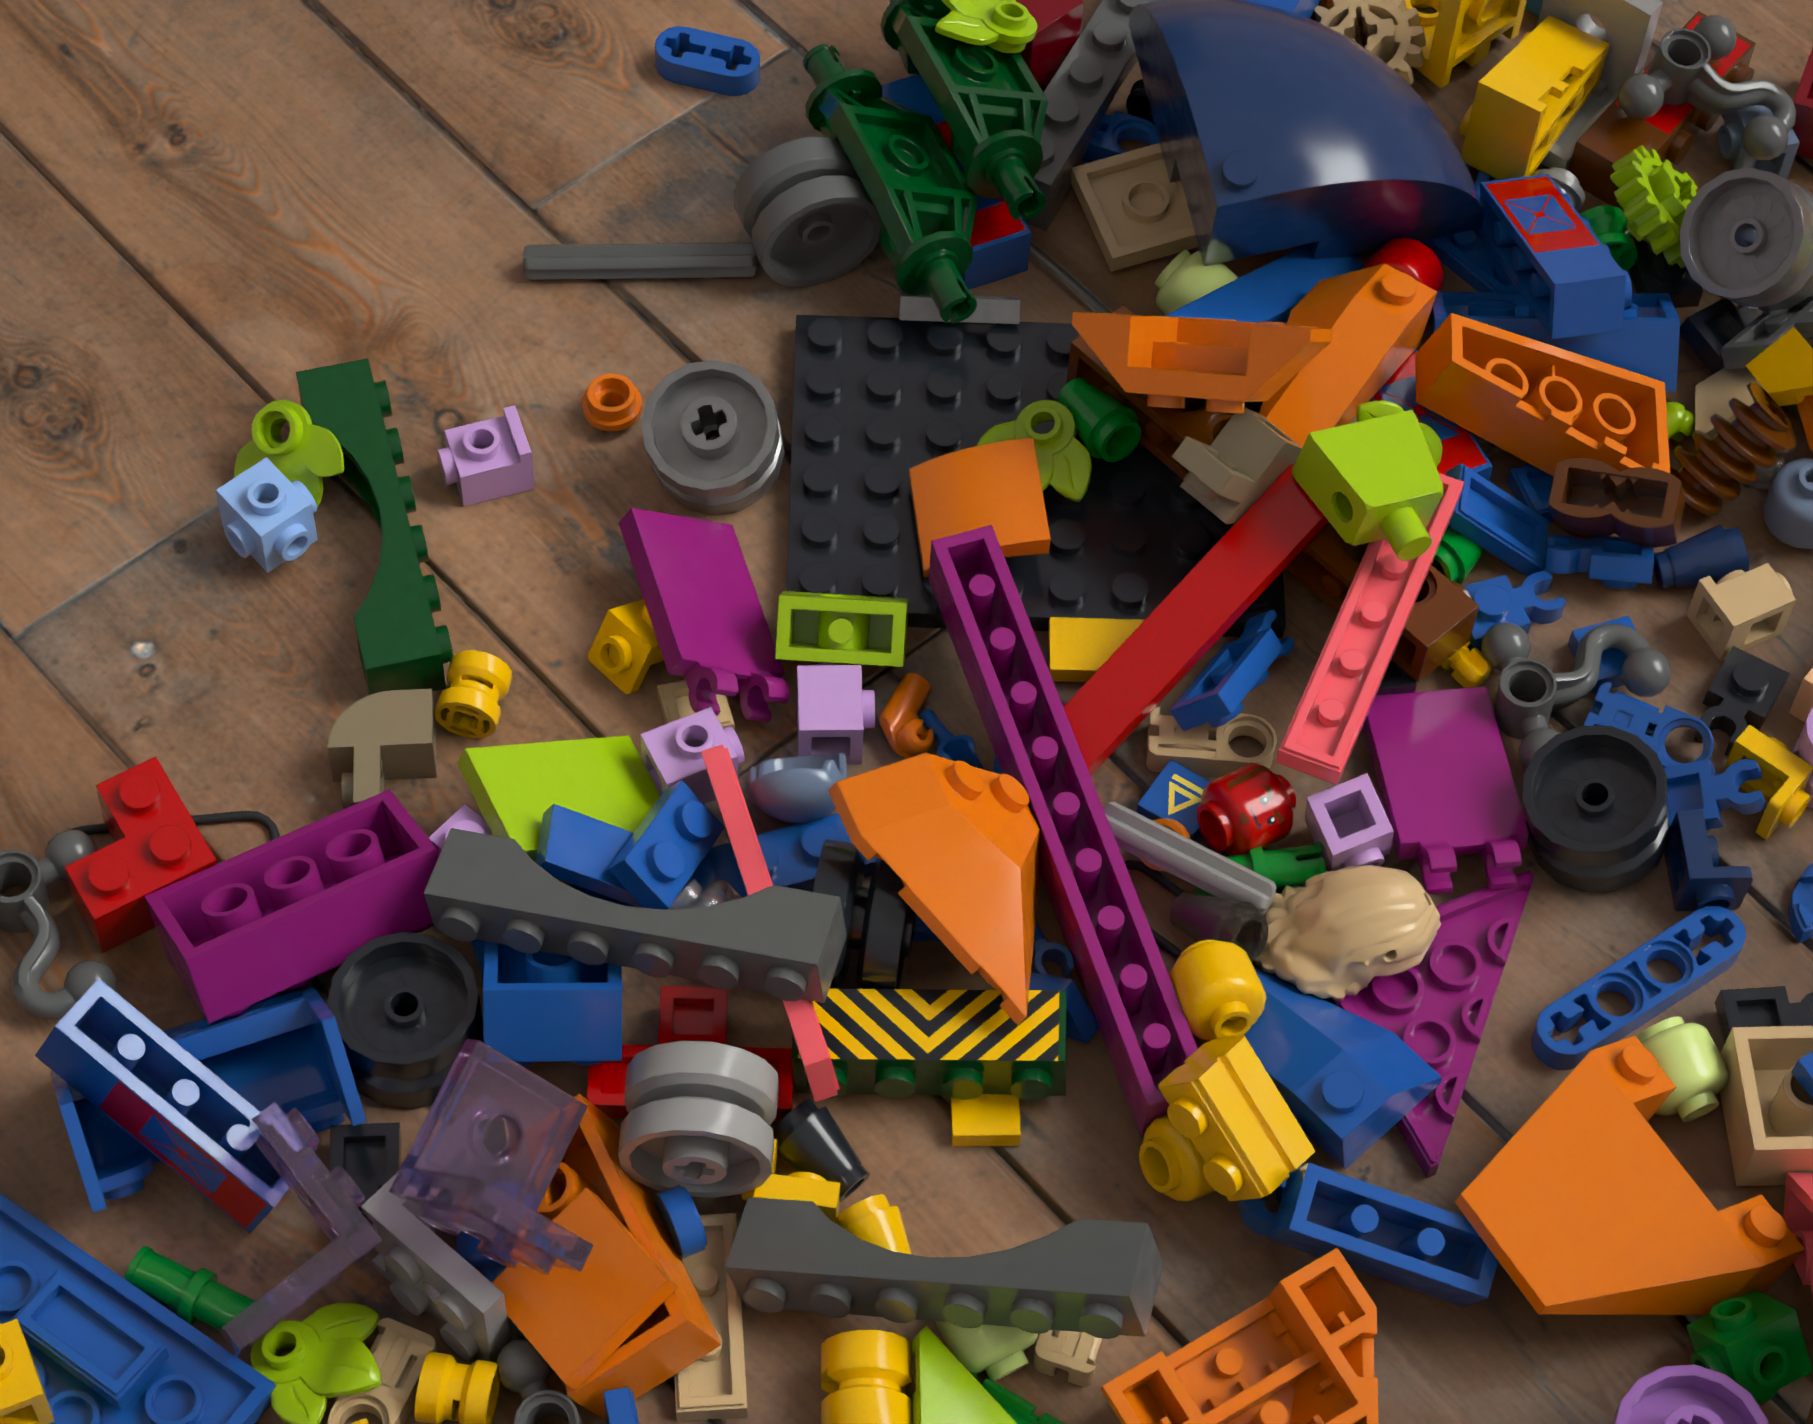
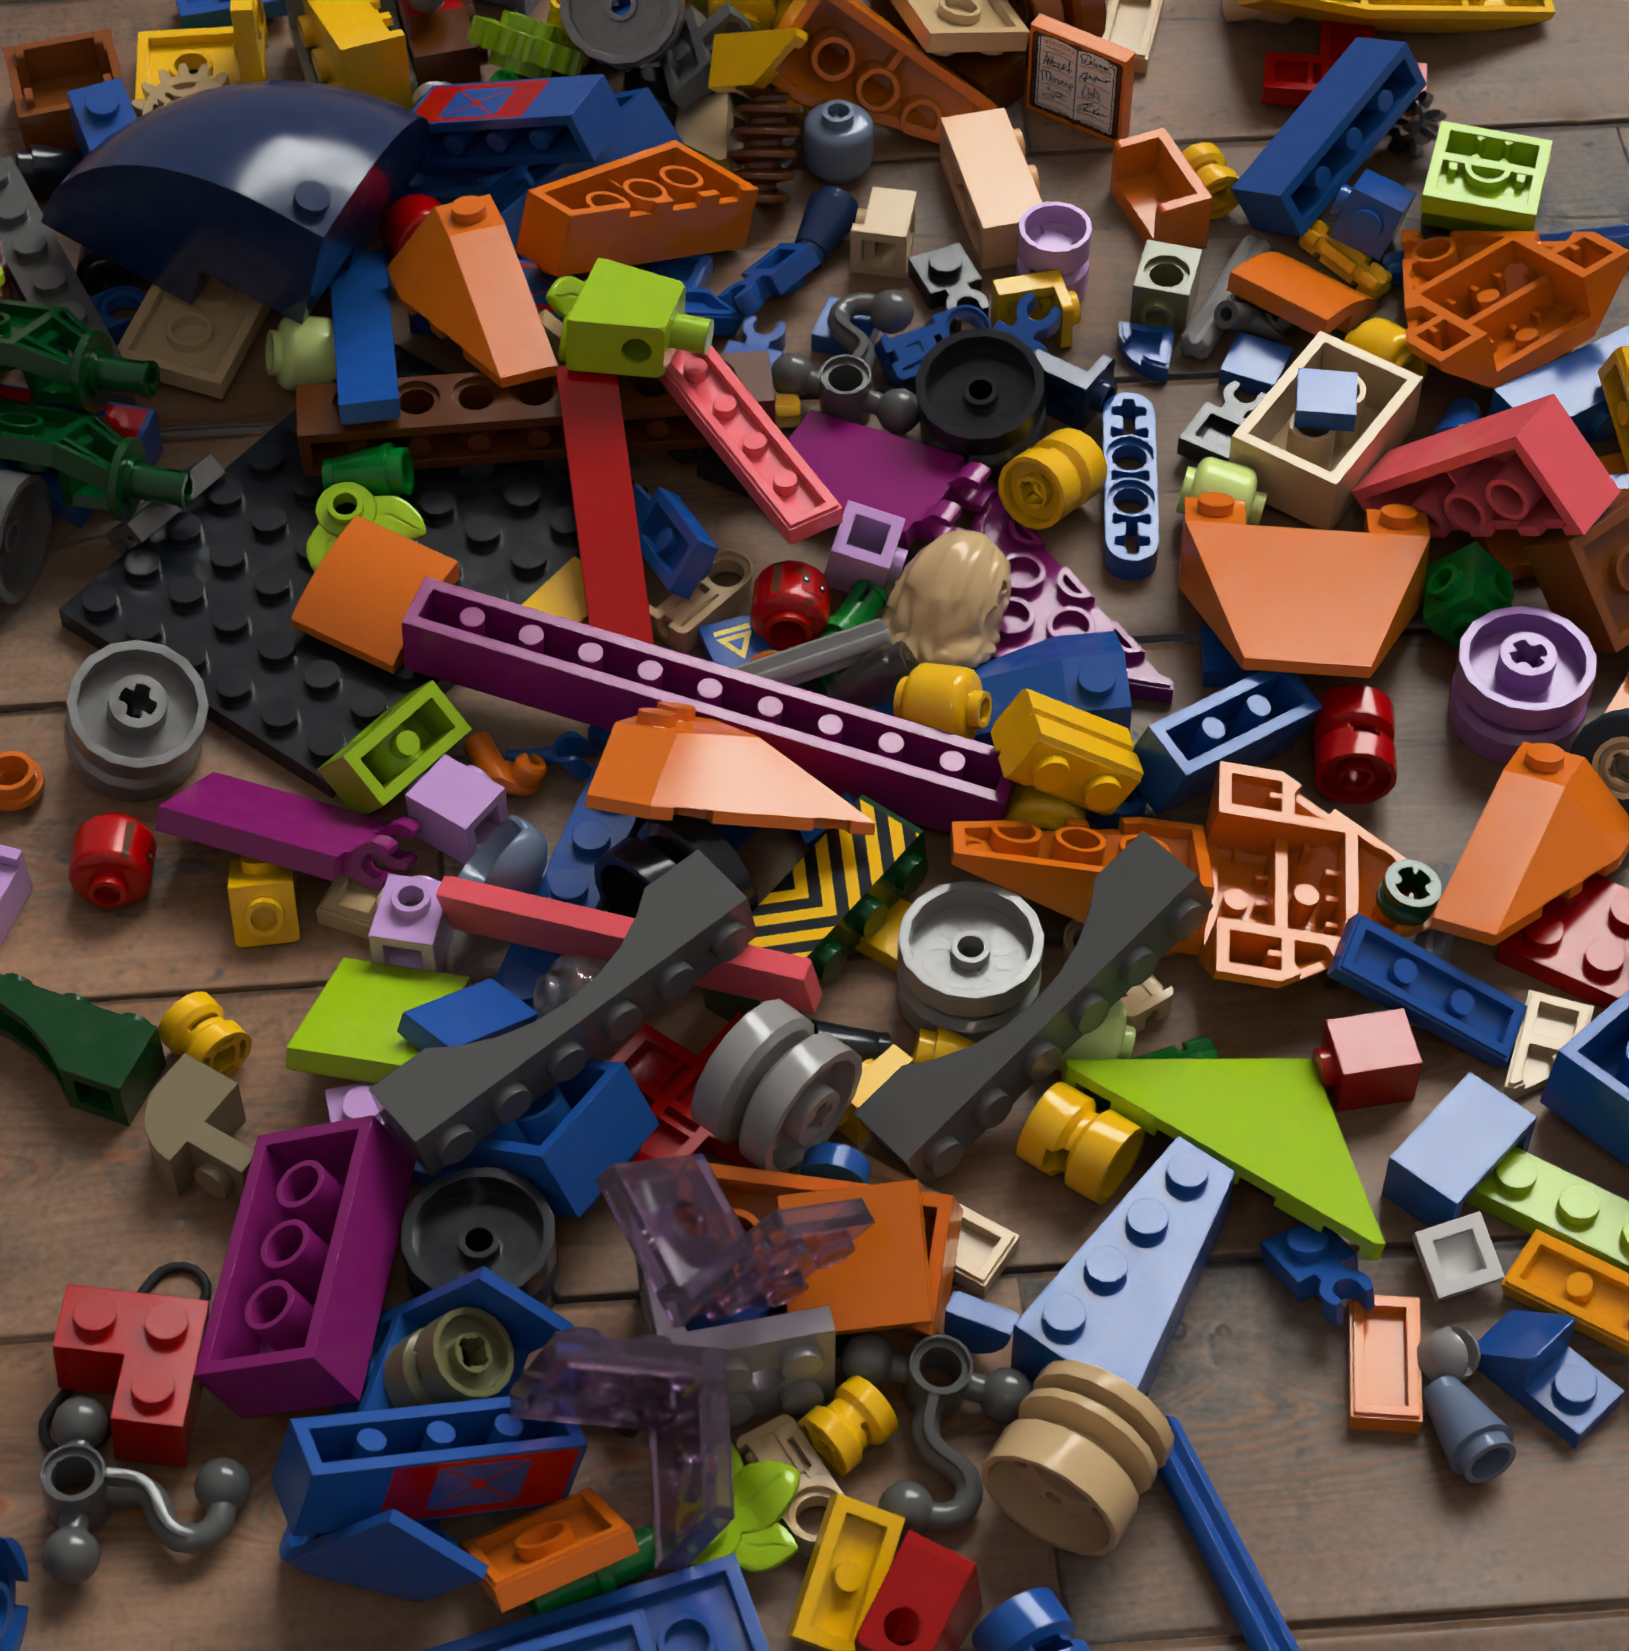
camera: 50 degrees left, 5 degrees down
(177, 1245) = (550, 1548): none -> orange tile
(277, 1061) = (450, 1360): none -> olive wheel
(585, 518) = (112, 860): none -> red head
(666, 847) = (497, 973): blue plate -> none
(974, 1182) = (968, 959): none -> light grey wheel
(1109, 1174) = (1062, 864): none -> orange wedge
(1199, 356) = (435, 337): orange wedge -> none
(1236, 465) = (527, 395): dark tan brick -> none
(1495, 1350) = (1354, 745): none -> red wheel
(1575, 920) = (1052, 478): none -> yellow wheel
(1600, 501) = (742, 230): reddish brown brick -> none

